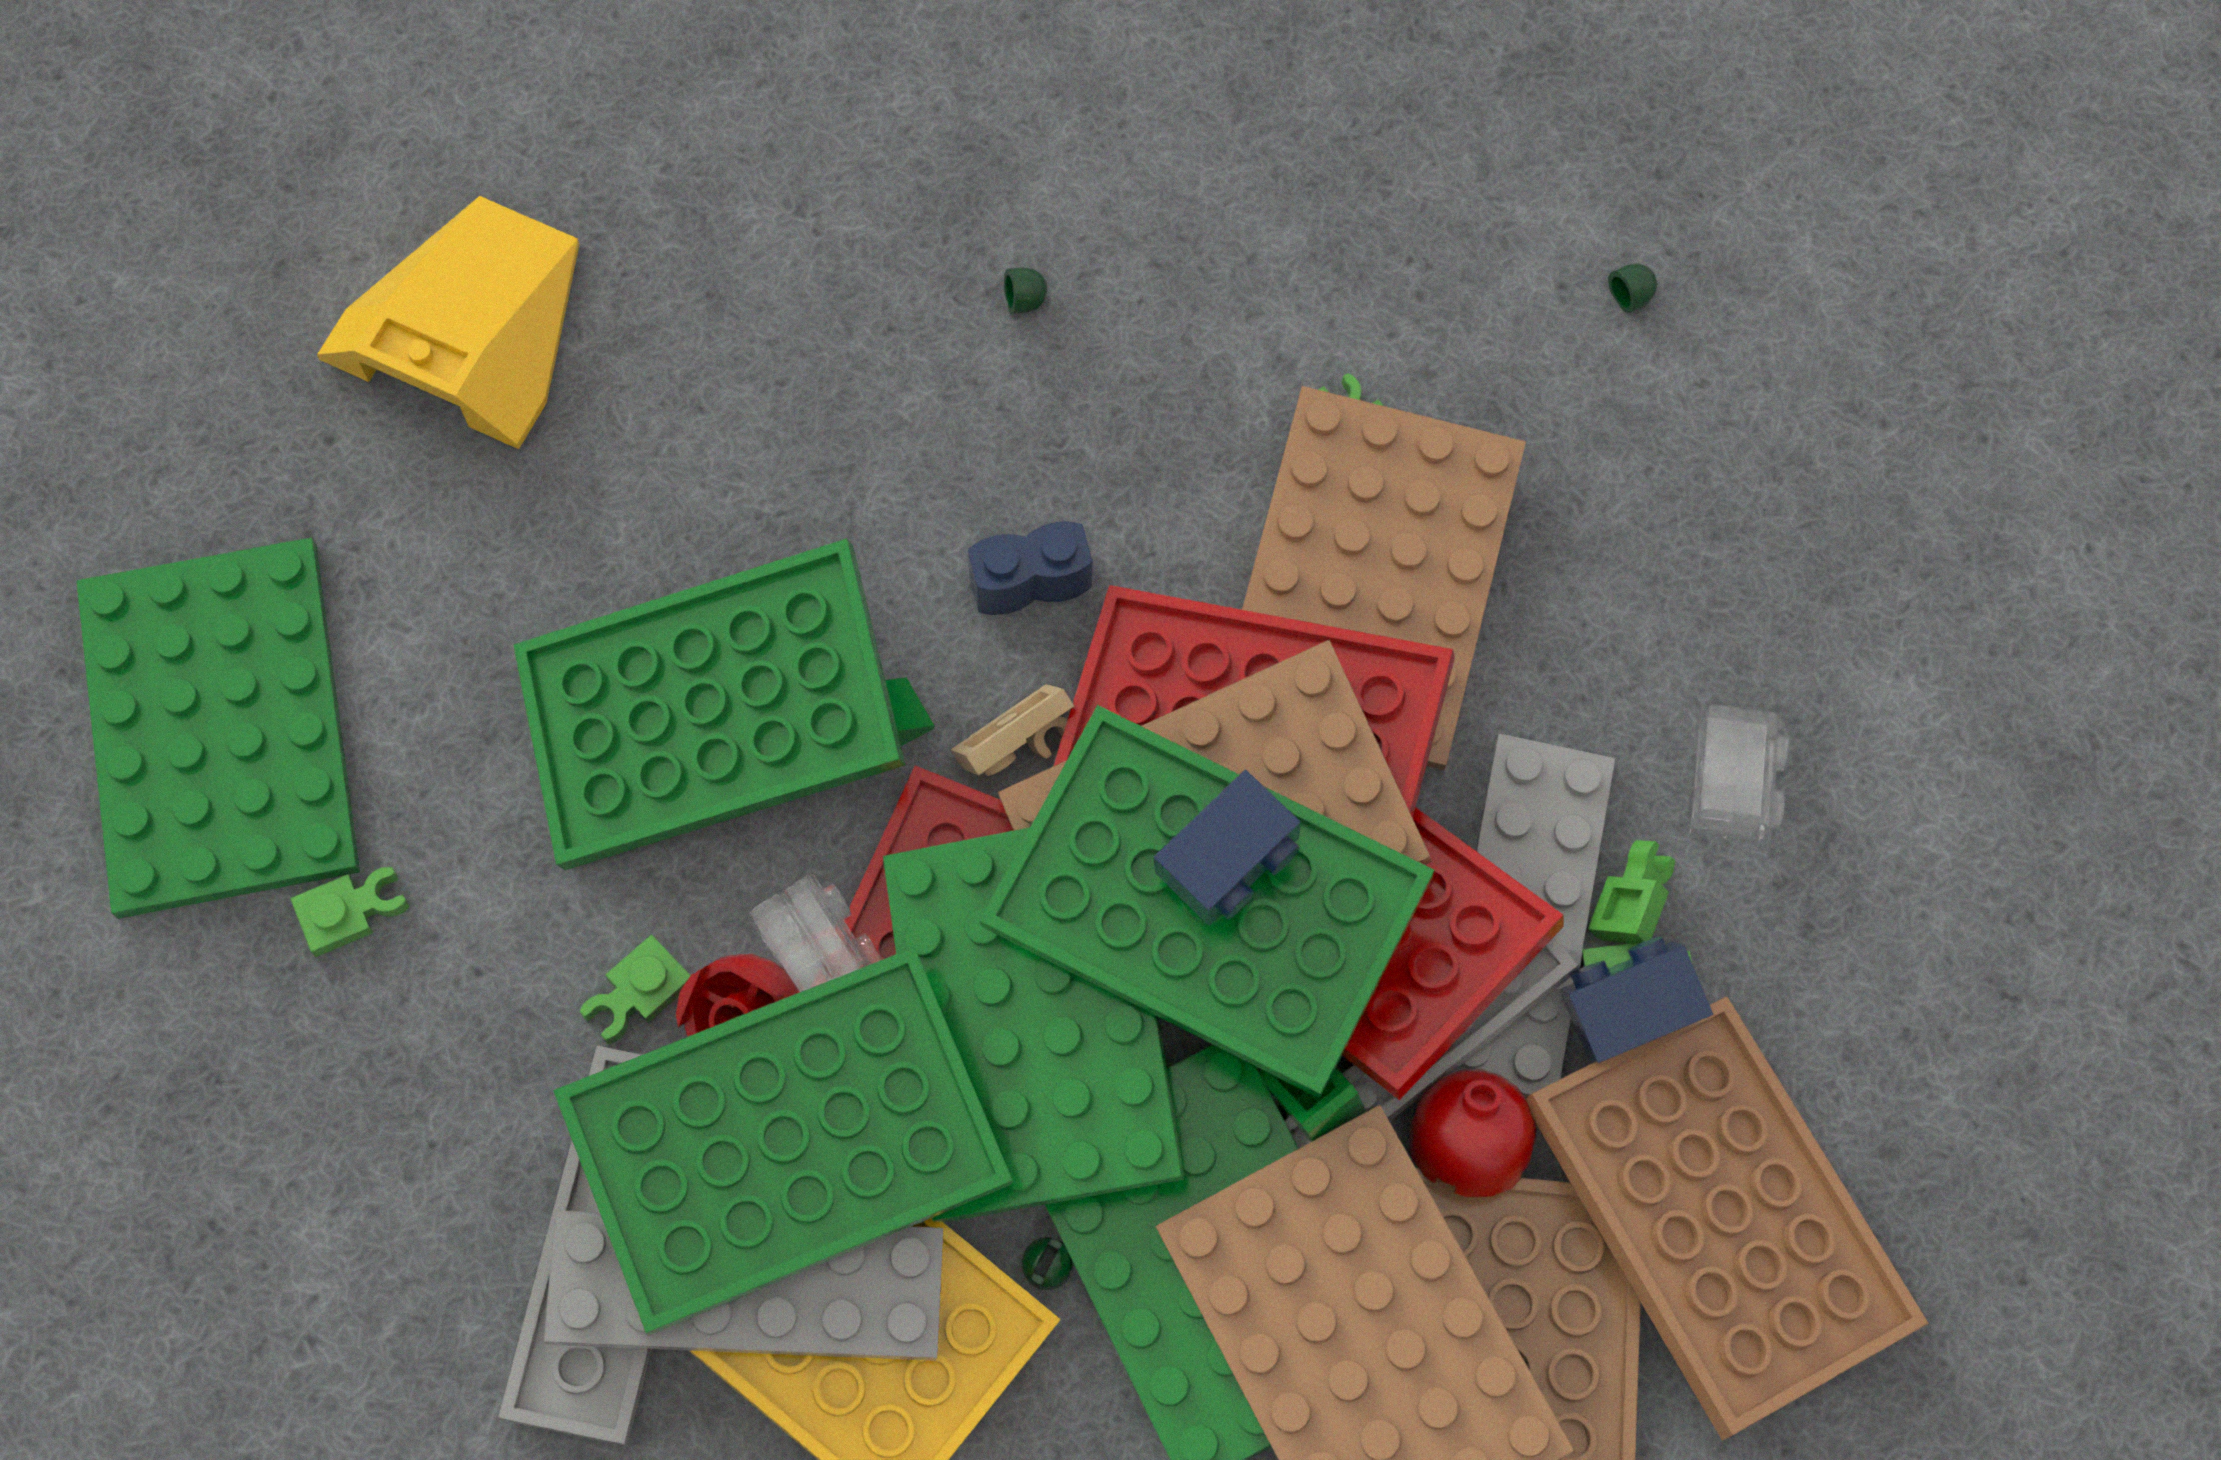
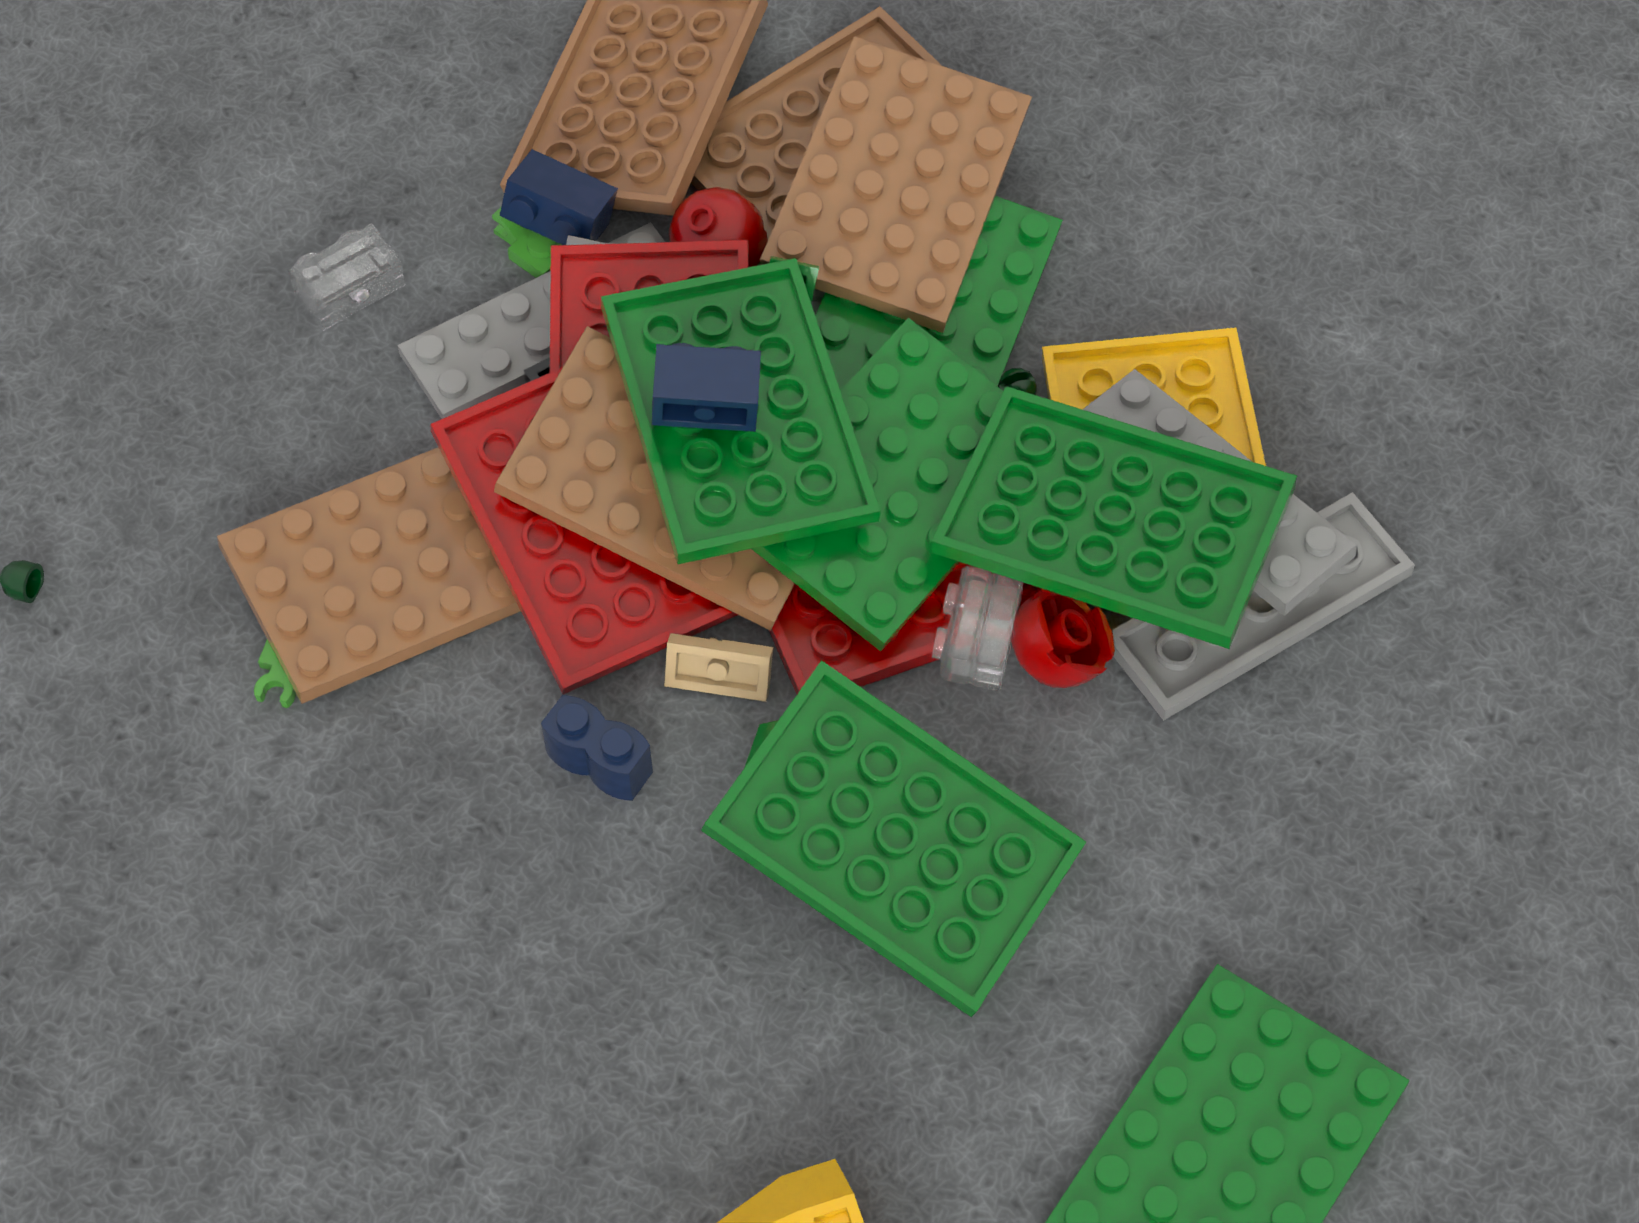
camera: 130 degrees left, 10 degrees down
(340, 912) = (1253, 950): bright green plate -> none
(643, 983) = (1099, 734): bright green plate -> none
(1024, 289) = (380, 937): dark green hinge -> none
(1634, 902) = (490, 268): bright green plate -> none

